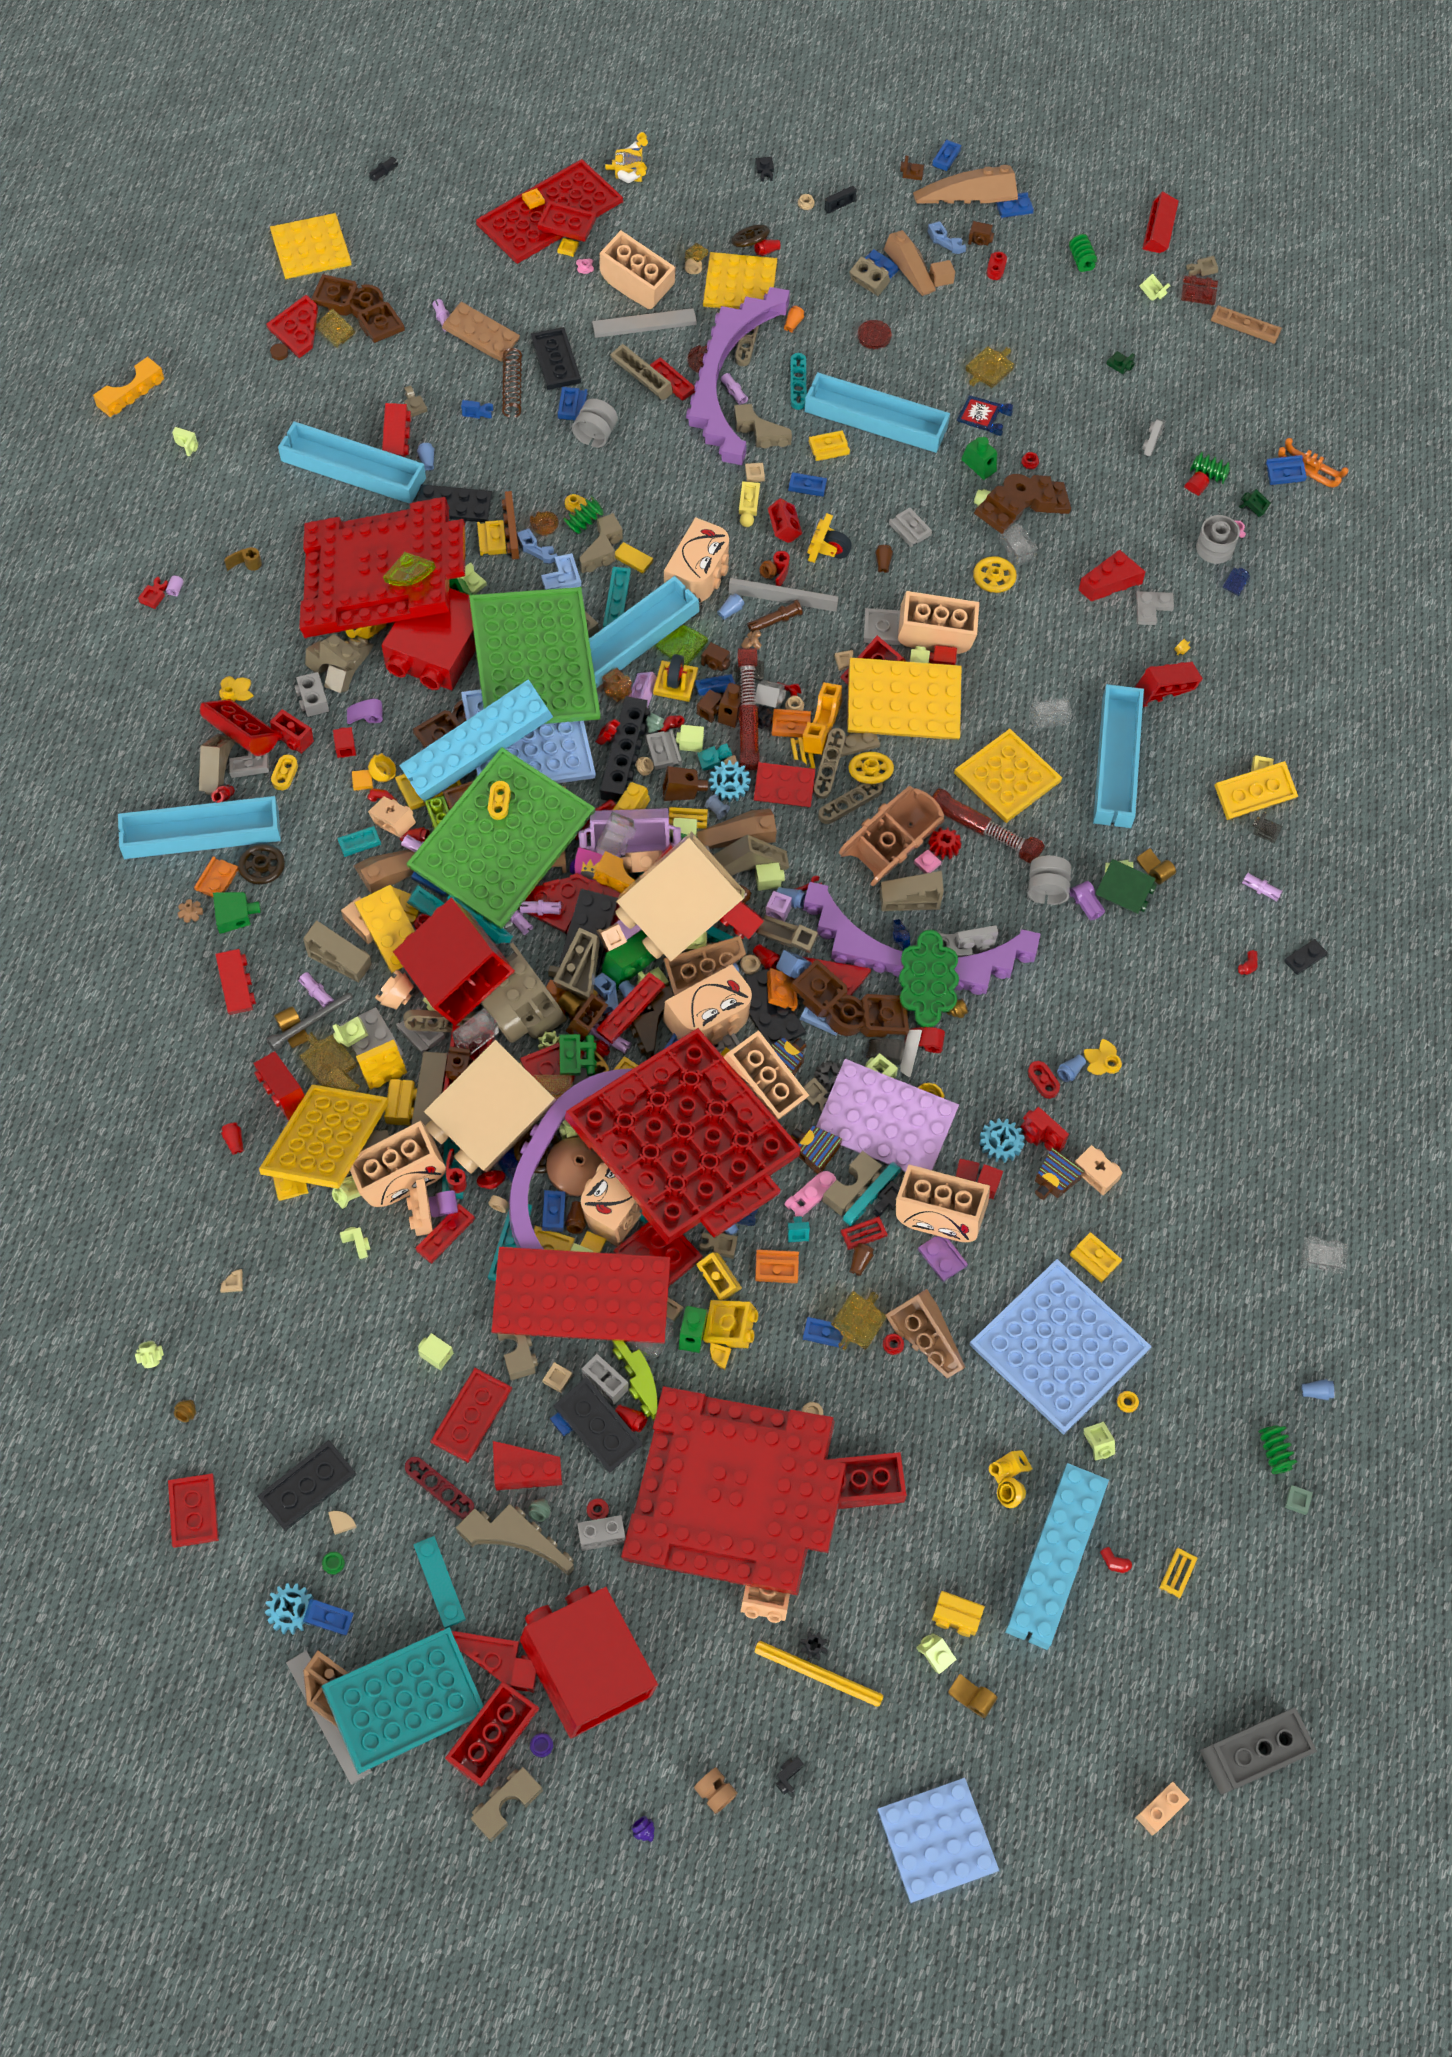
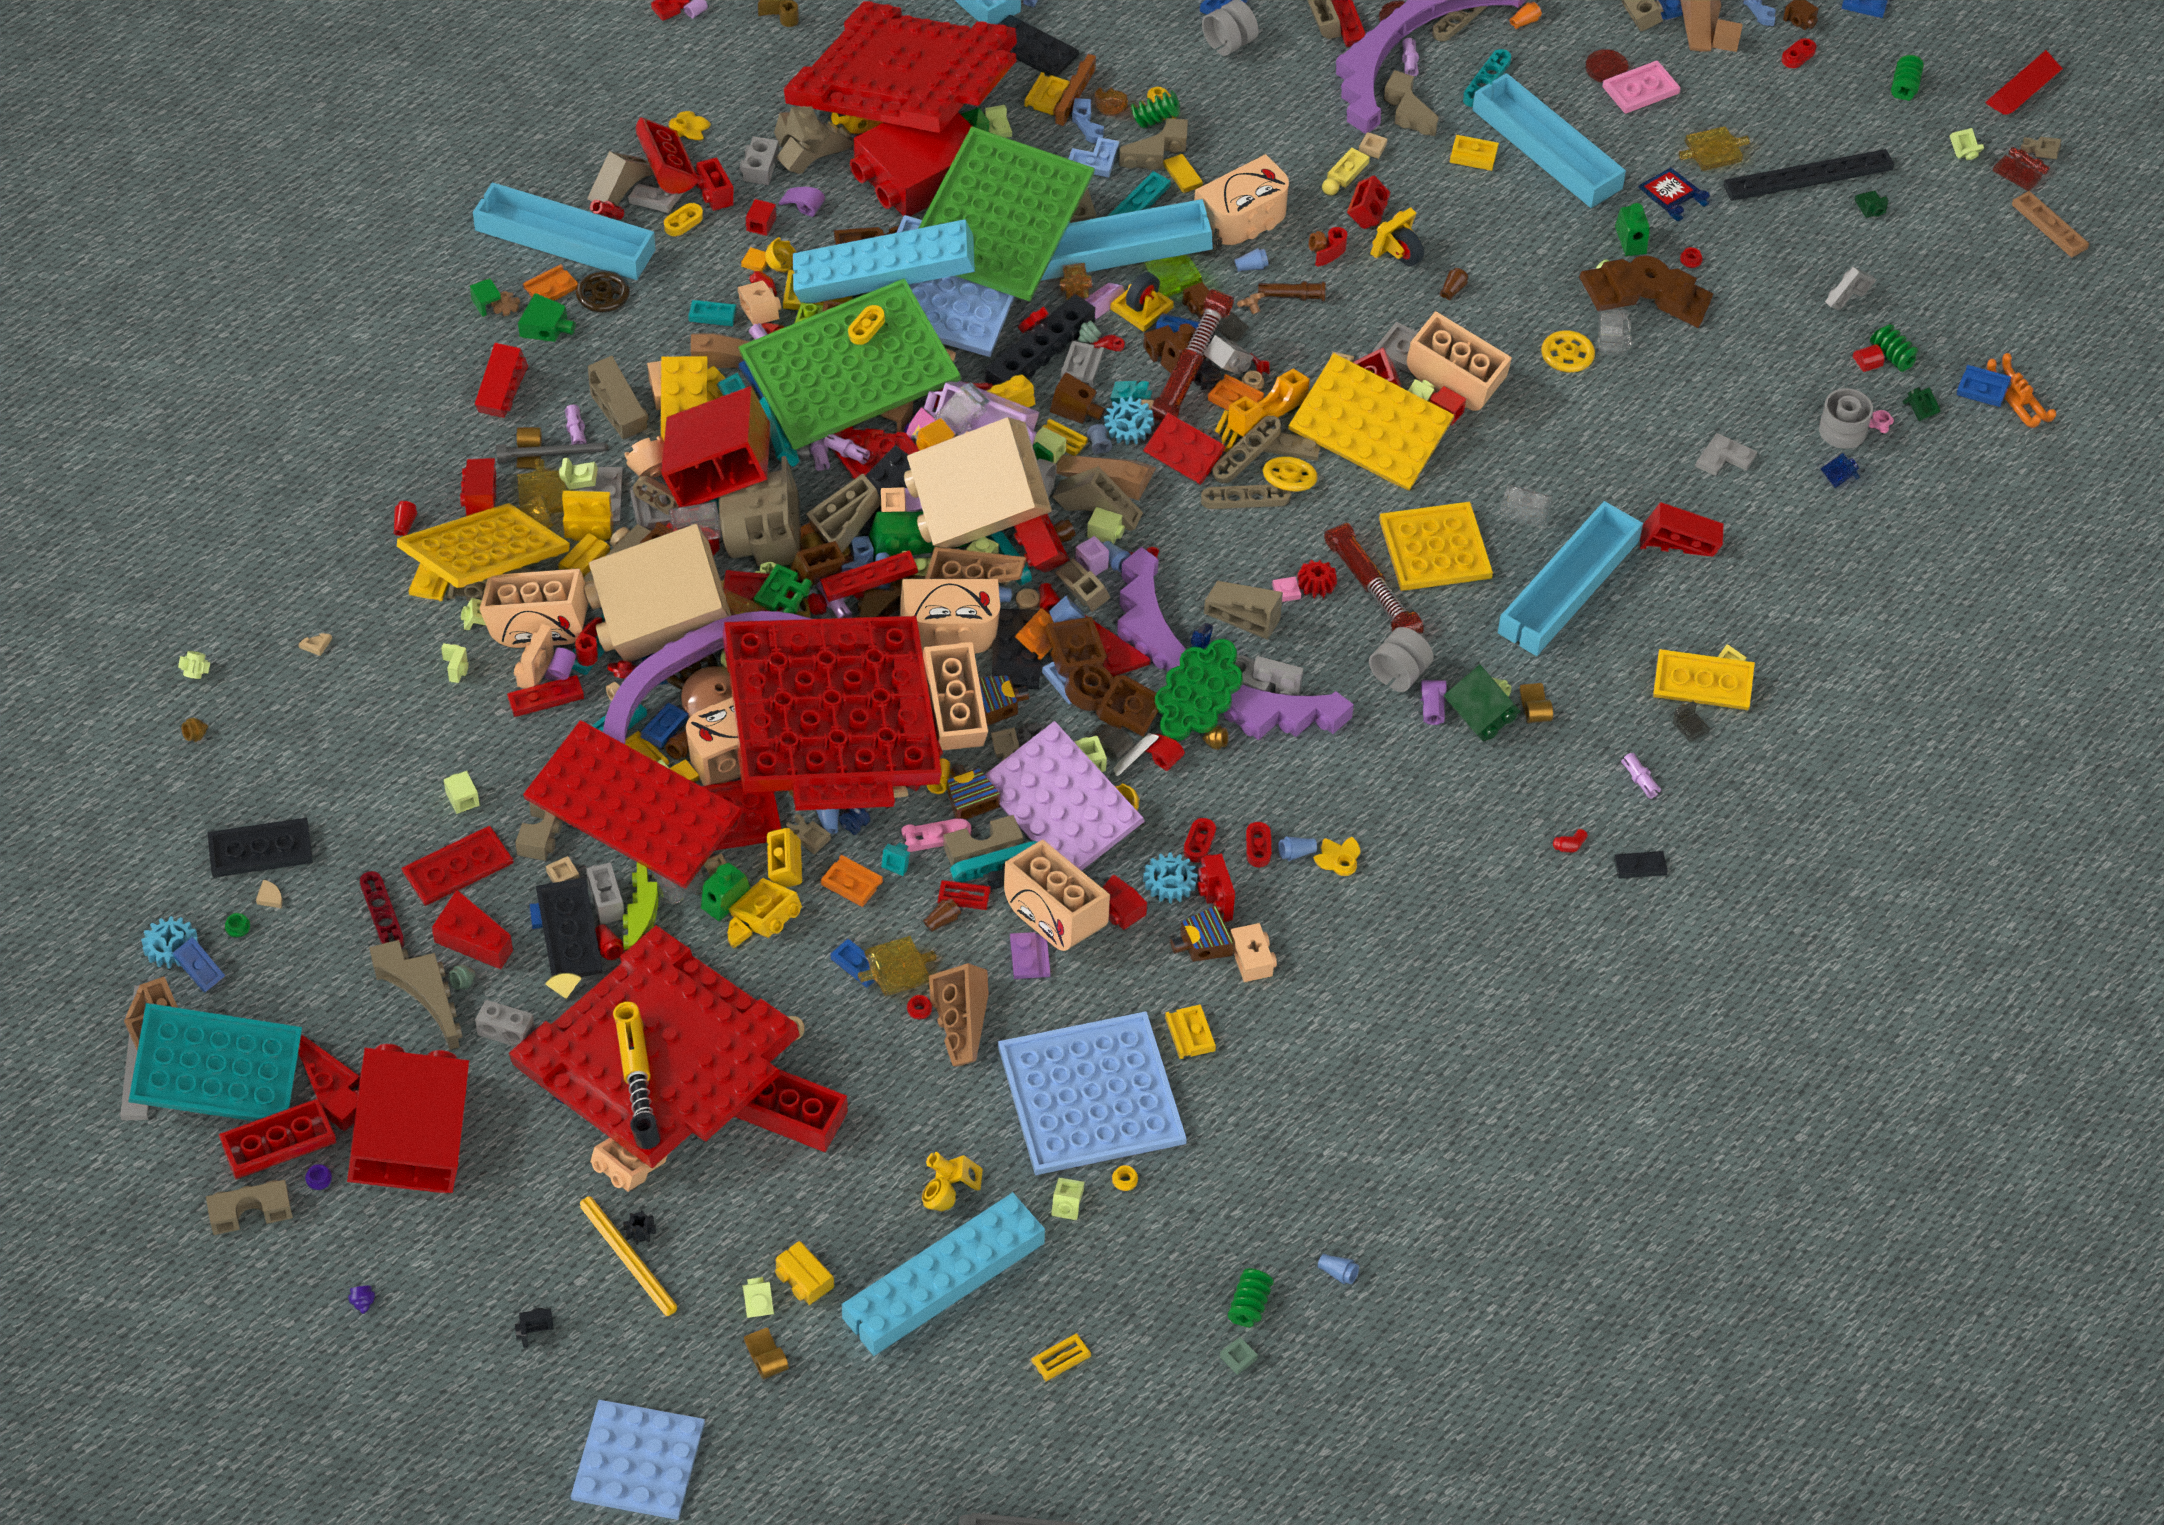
camera: 30 degrees right, 10 degrees down
(171, 913) = (484, 293): none -> green panel
(193, 1510) = (141, 816): red plate -> none
(408, 570) = (923, 75): clear neon green plate -> none
(415, 1069) = (618, 536): none -> tan tile
(439, 1582) = (323, 992): teal plate -> none
(597, 1502) = (519, 998): red plate -> none
(622, 1472) = (563, 983): none -> light yellow tile
(644, 765) = (1055, 368): tan plate -> none
(690, 738) = (1118, 364): yellowish green brick -> none
(715, 1790) = (452, 1298): medium nougat wheel -> none
(743, 1526) = (636, 1073): none -> piece
(783, 594) = (1316, 272): light grey tile -> none
(807, 484) = (1422, 180): blue plate -> none
(889, 837) = (1261, 536): nougat animal -> none
(909, 340) = (1641, 87): none -> bright pink plate
(910, 527) = (1506, 266): light grey plate -> none
(1001, 1099) = (1198, 841): none -> red plate
(1065, 359) = (1808, 174): none -> black plate
(1111, 576) = (1694, 404): red wedge -> none
(1114, 1563) = (1001, 1314): red arm -> none
(1182, 647) = (1727, 508): yellow plate -> none
(1324, 1255) = (1439, 1147): clear brick -> none

